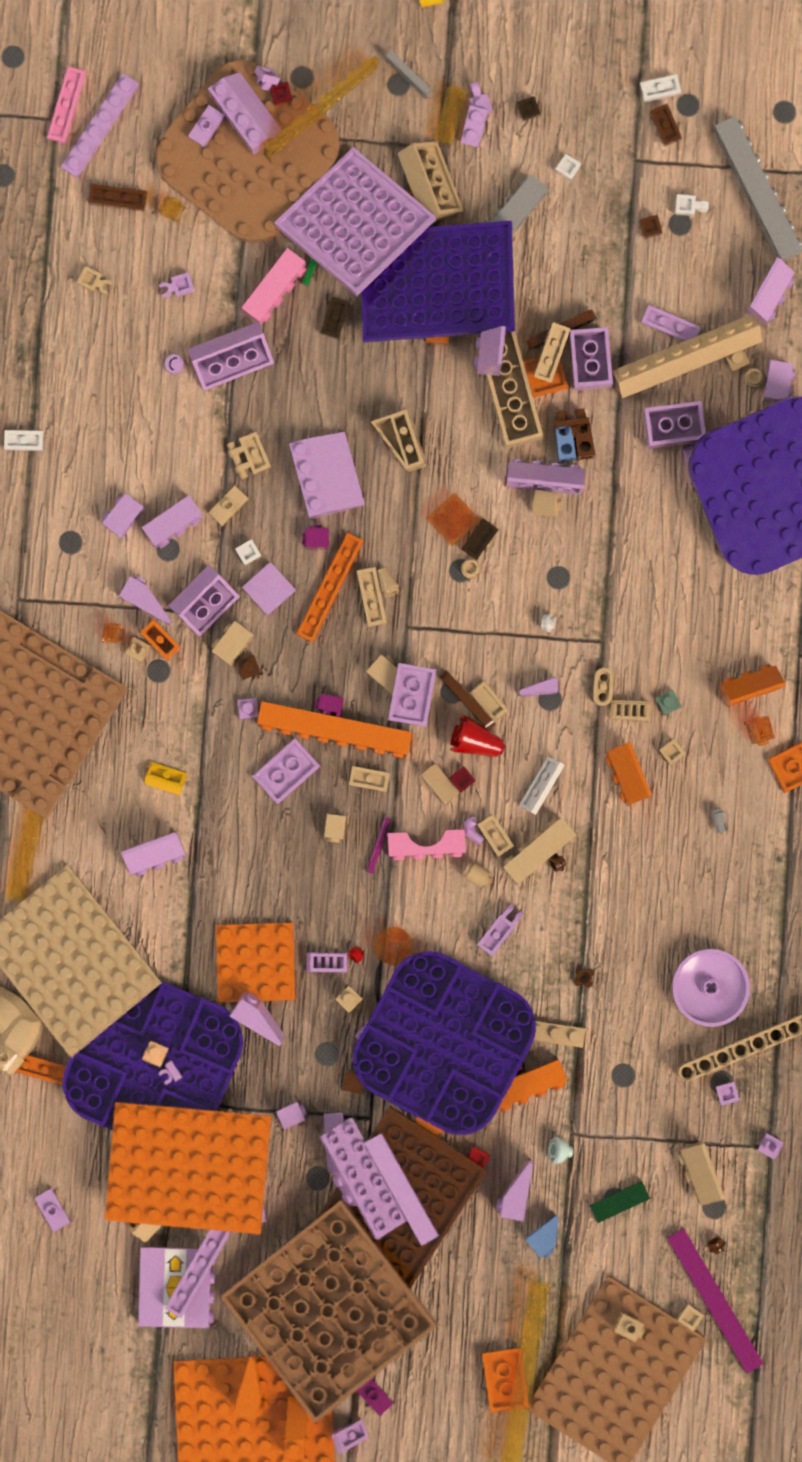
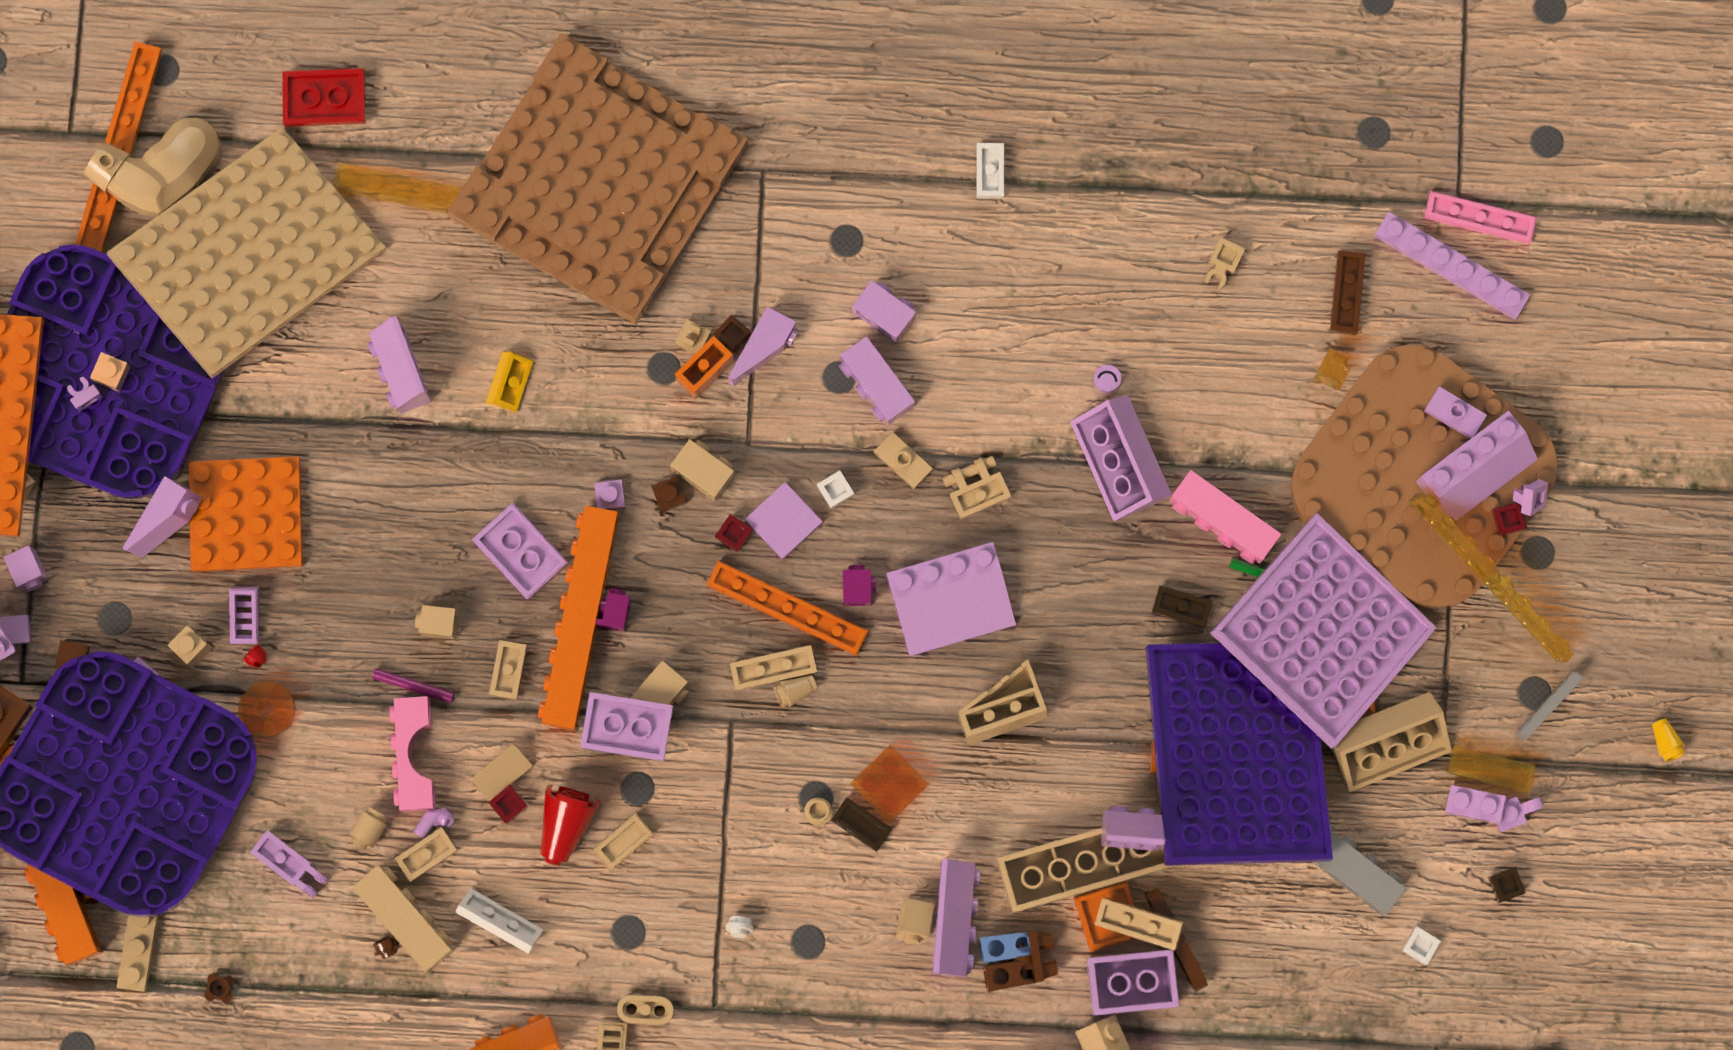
camera: 90 degrees right, 5 degrees down
(110, 633) = (715, 299): clear orange tile -> none
(135, 622) = (732, 333): none -> reddish brown tile
(180, 285) = (1221, 384): lavender plate -> none
(203, 600) = (763, 428): lavender slope -> none
(277, 622) = (733, 533): none -> dark red plate
(467, 700) = (623, 809): reddish brown beam -> none
(542, 688) = (643, 925): lavender slope -> none

